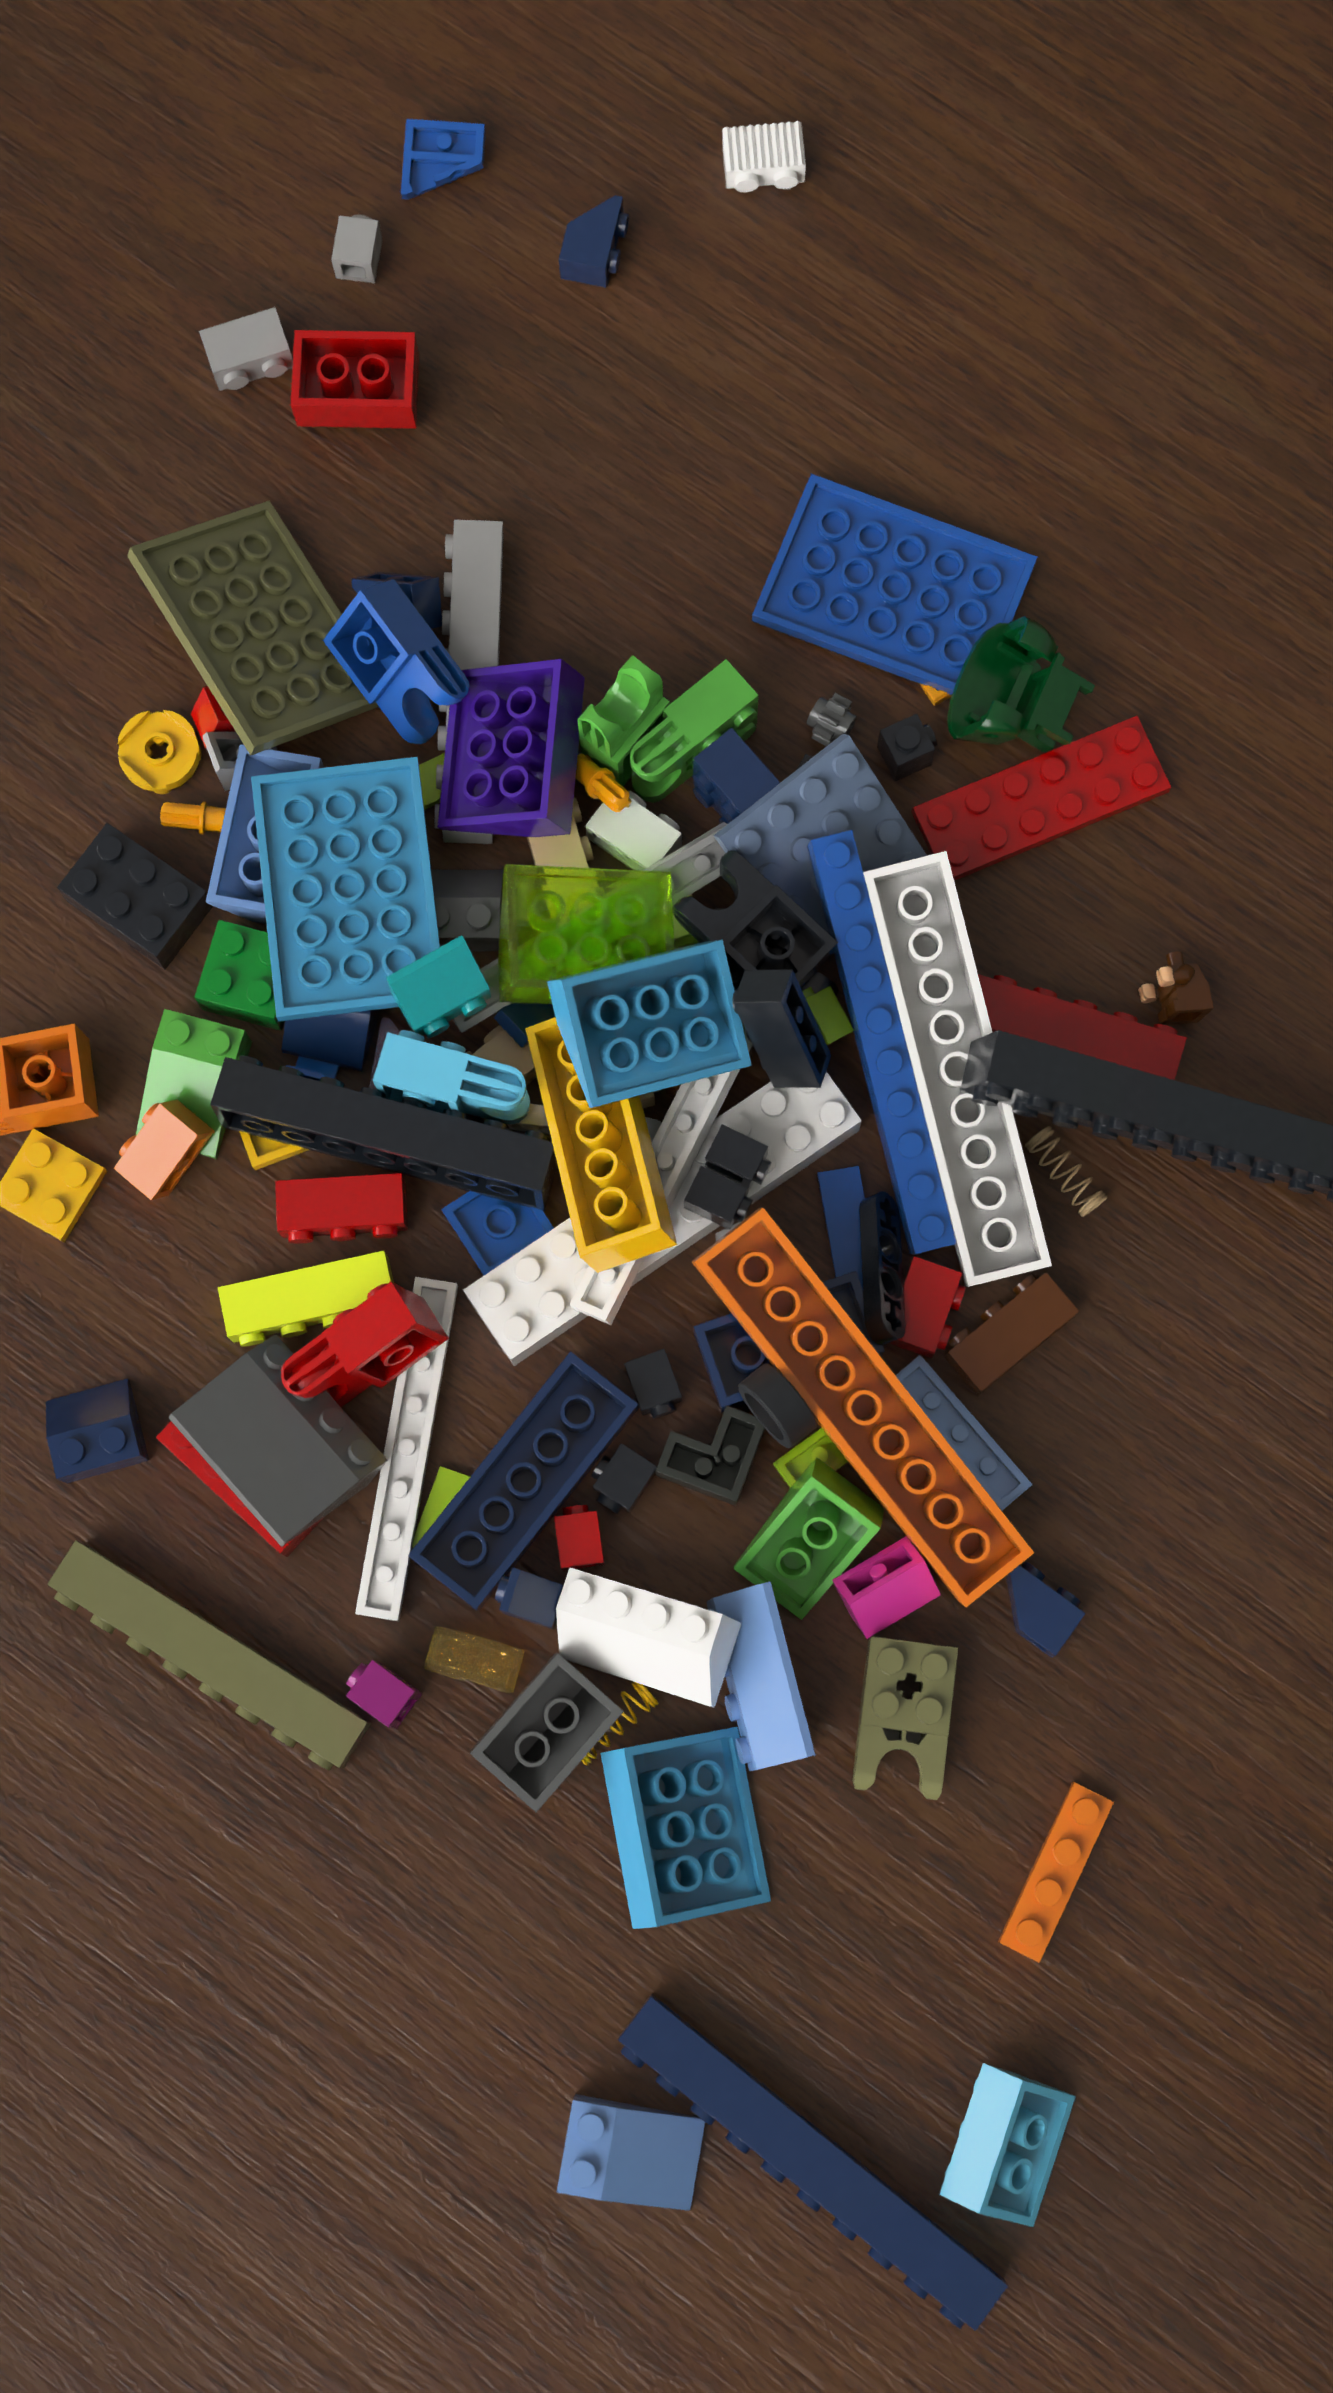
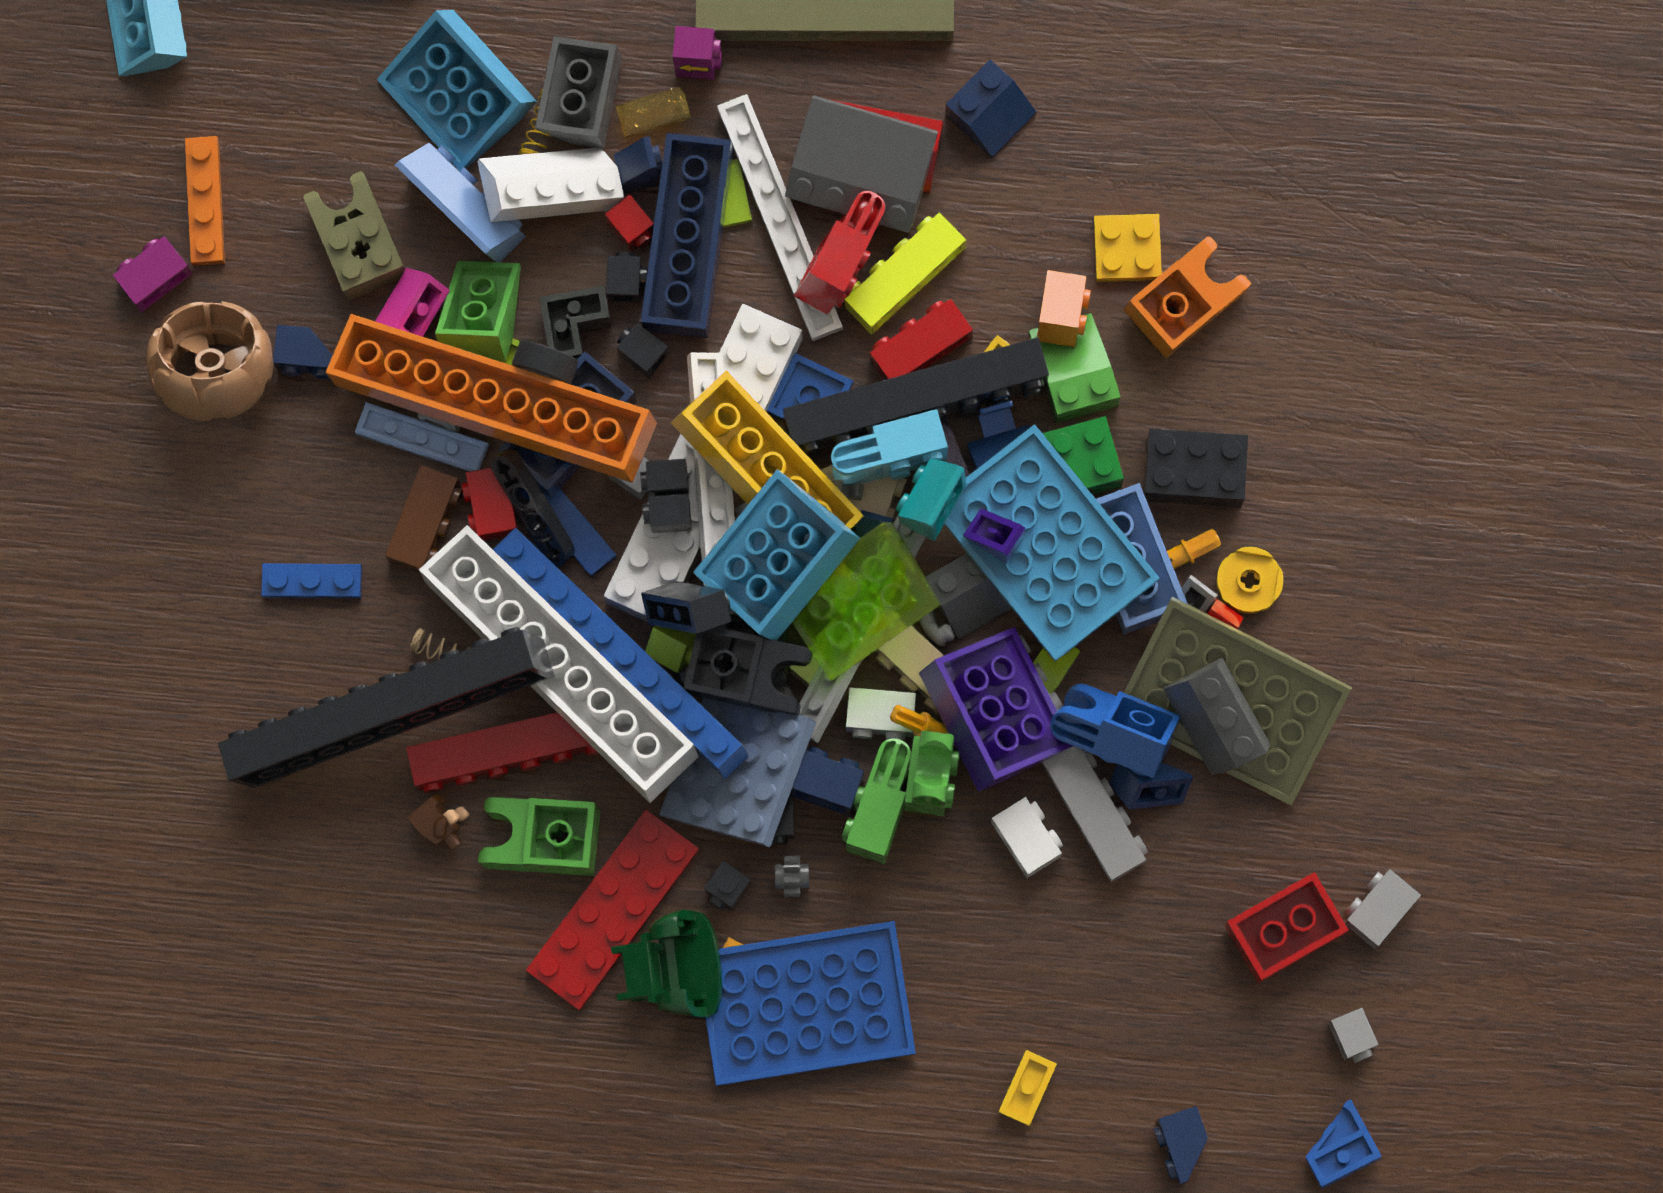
camera: 150 degrees right, 0 degrees up
(285, 609) = (1218, 717): none -> dark grey slope
(395, 913) = (995, 534): none -> dark purple slope
(531, 1081) = (852, 492): none -> dark grey bar
(561, 619) = (1027, 837): none -> white brick
(717, 381) = (1027, 1088): none -> yellow plate
(1089, 907) = (534, 833): none -> bright green brick
(1168, 1814) = (152, 273): none -> magenta brick
(1173, 1343) = (312, 581): none -> blue plate
(1205, 1618) = (211, 390): none -> medium nougat wheel

